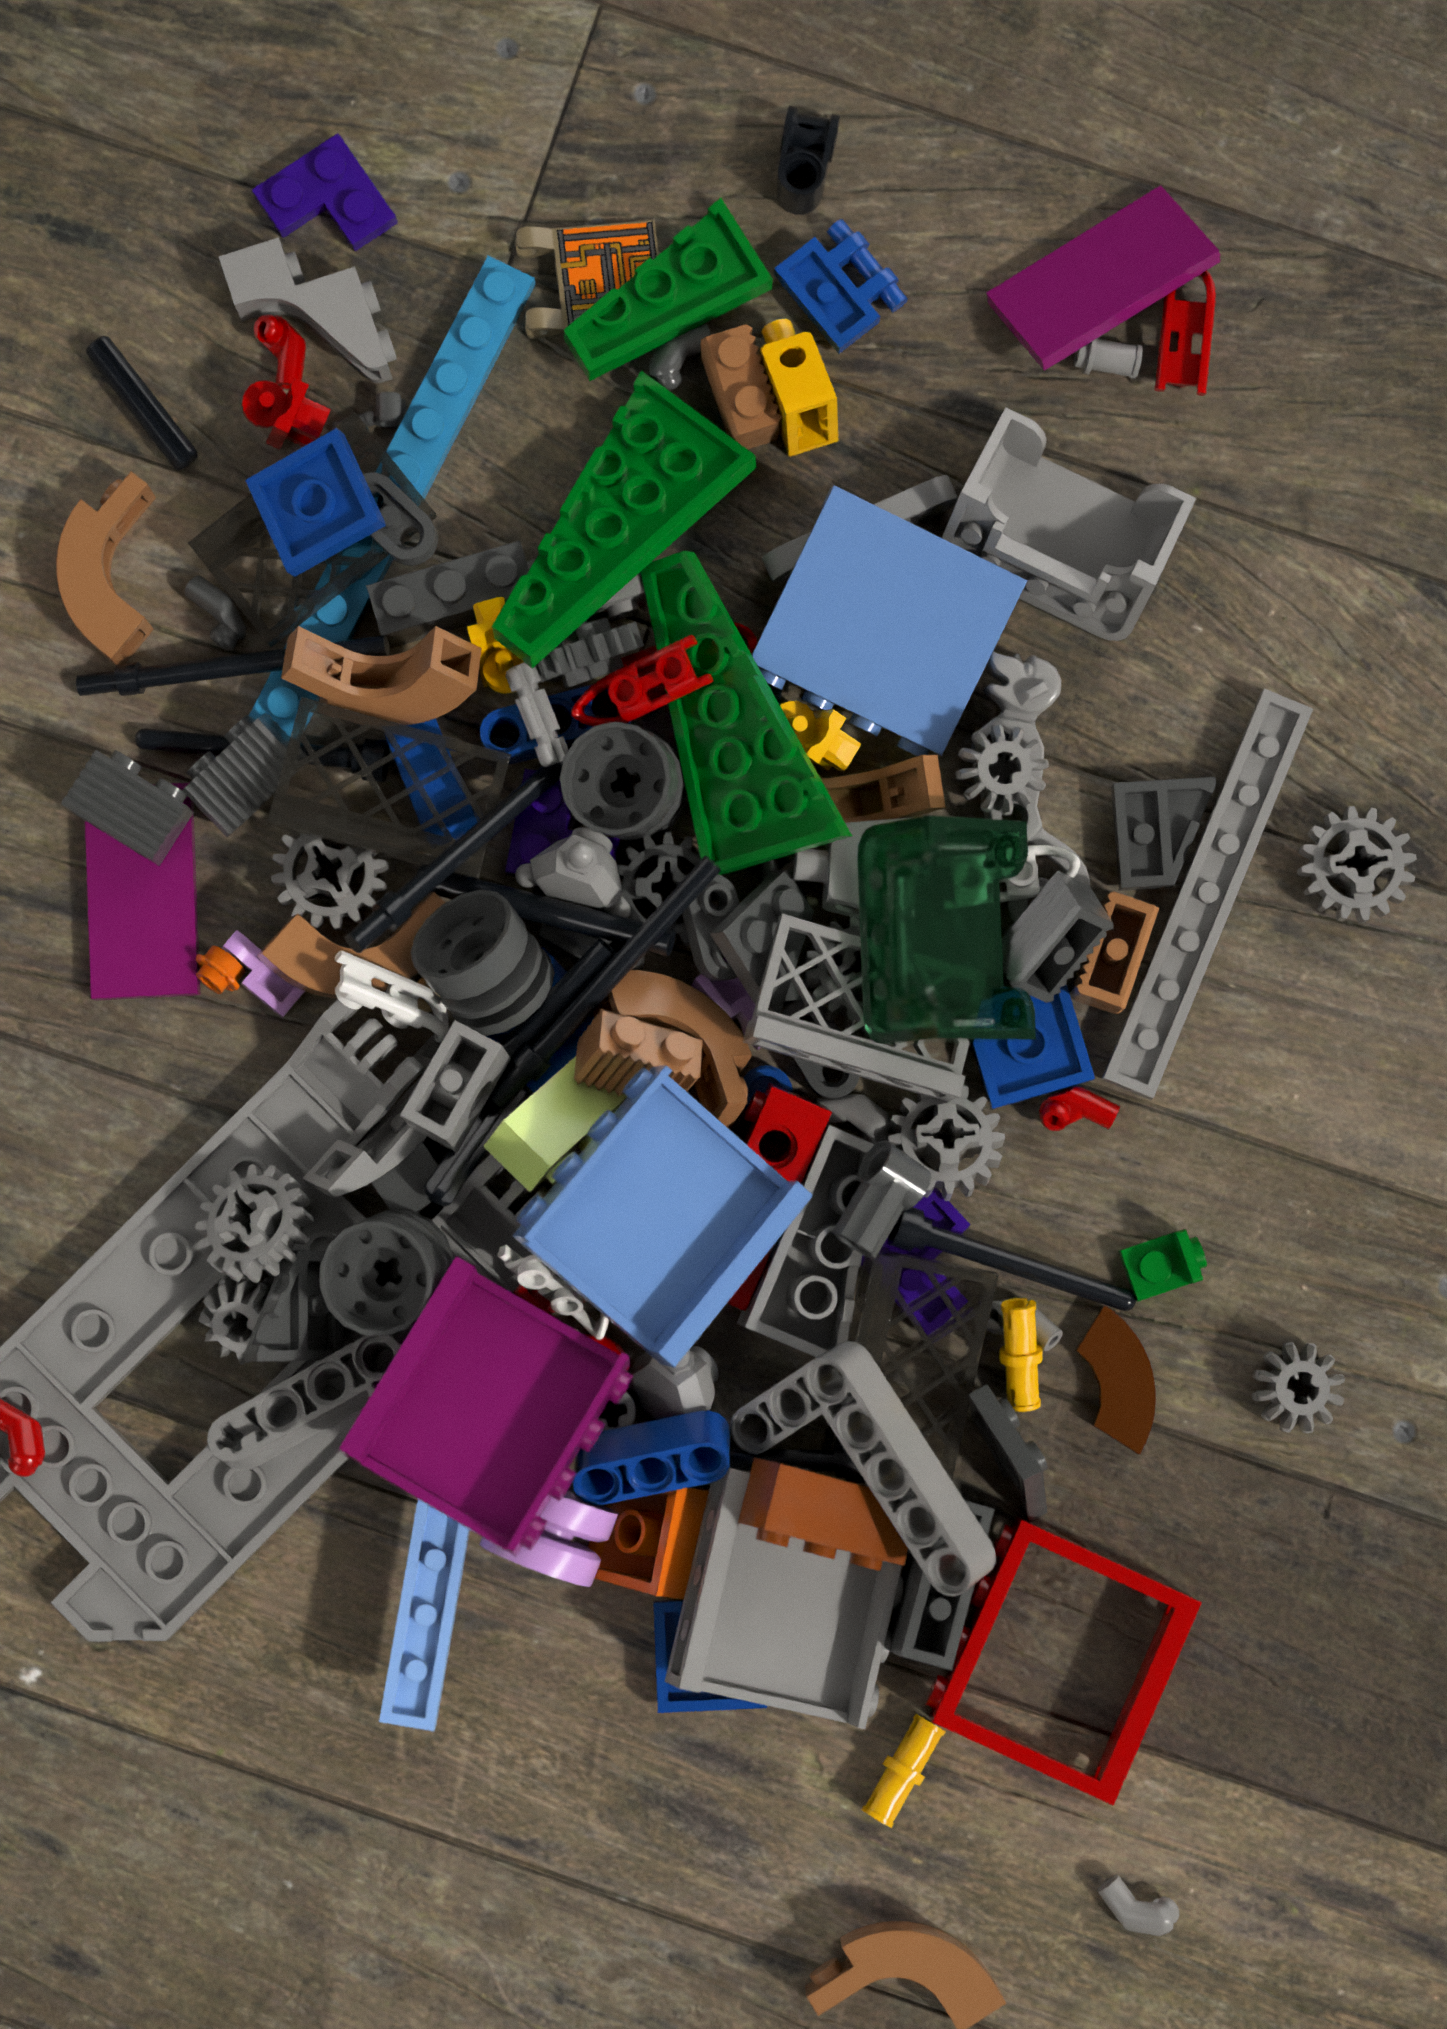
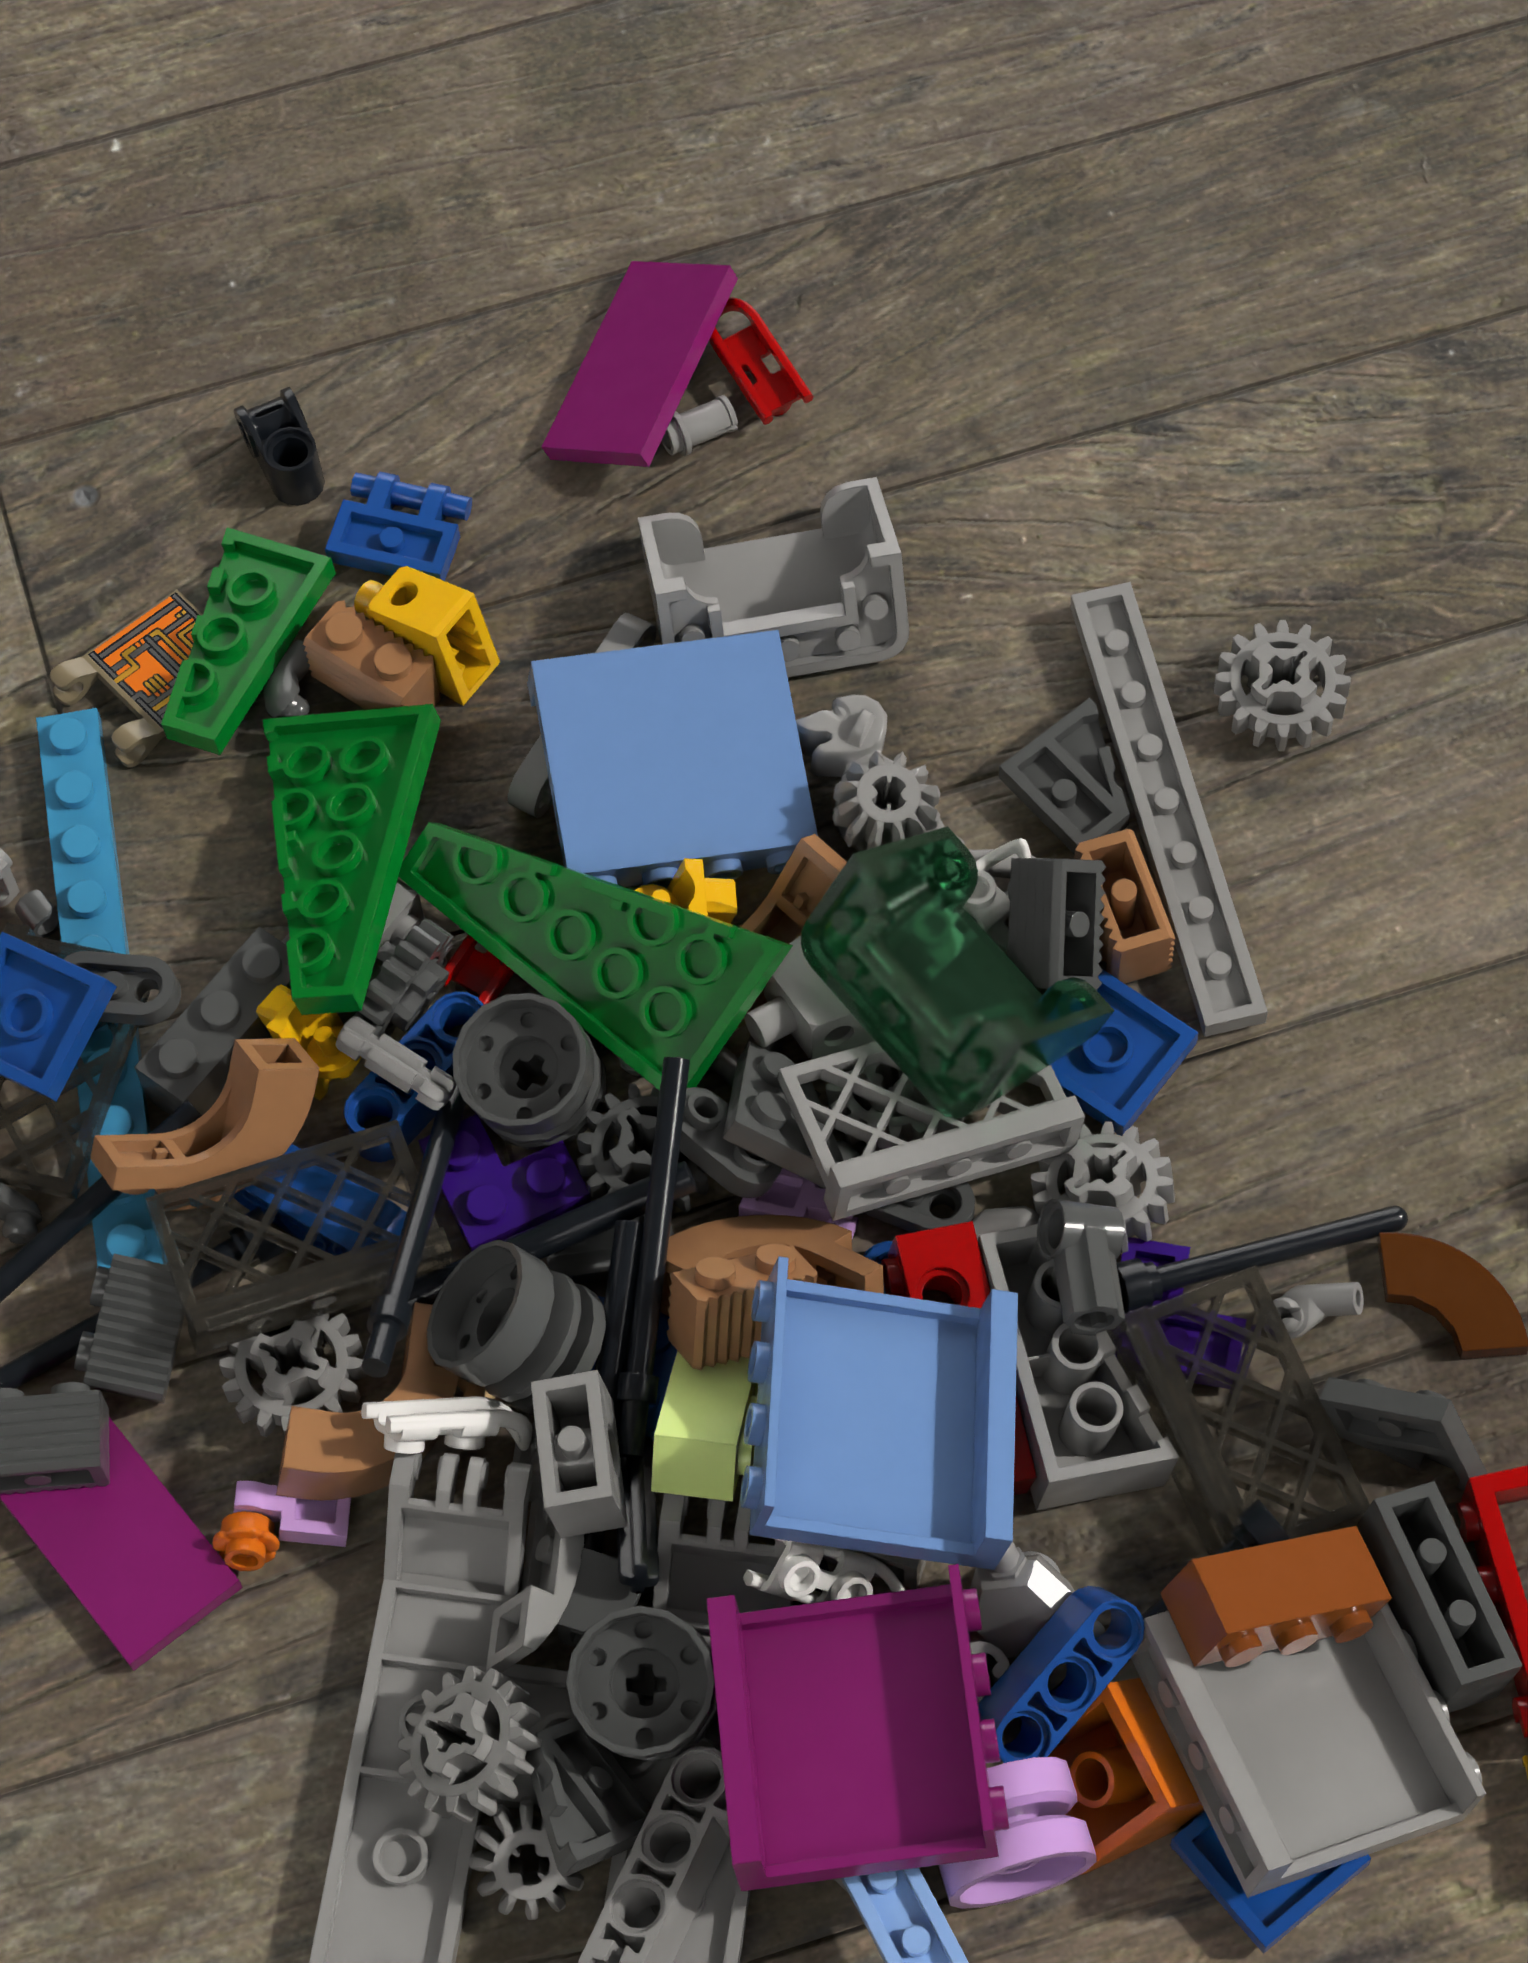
camera: 30 degrees left, 20 degrees down
(578, 872) = (543, 1181): light grey rock -> none
(630, 690) = (472, 978): red piece -> none
(875, 1452) = (1274, 1498): light grey beam -> none
(1021, 1354) = (1337, 1328): yellow pin -> none
(1074, 1104) = (1199, 1074): red arm -> none
(1163, 1264) = (1403, 1155): green bracket -> none

